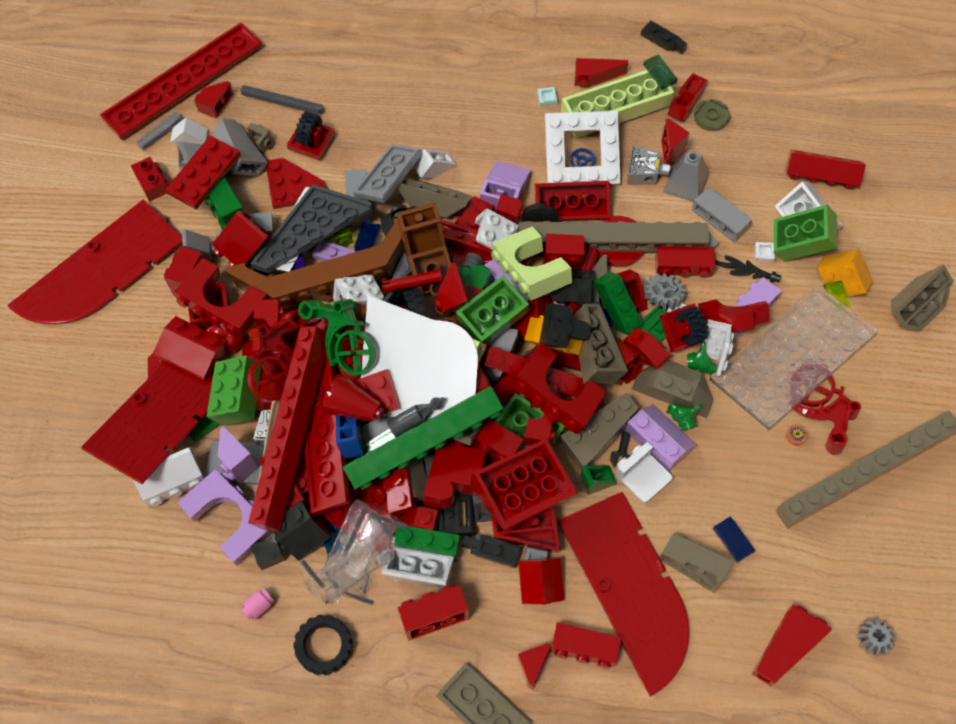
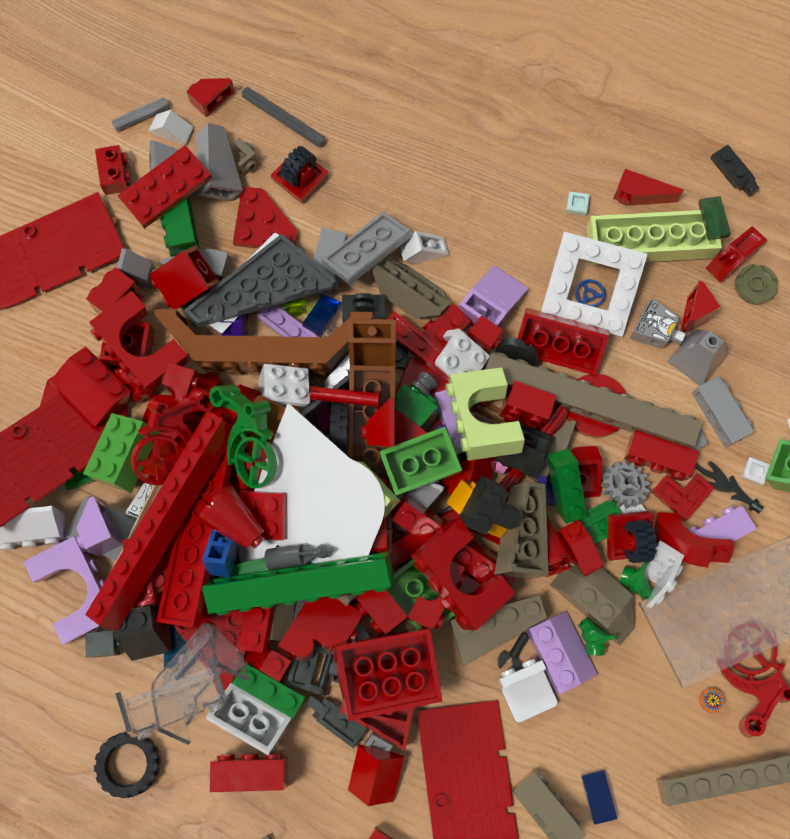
camera: 15 degrees right, 10 degrees up
(180, 80) = (182, 60): red plate -> none
(257, 604) = (73, 696): bright pink brick -> none
(597, 478) = (477, 677): green slope -> none
(715, 289) = (684, 499): none -> red plate

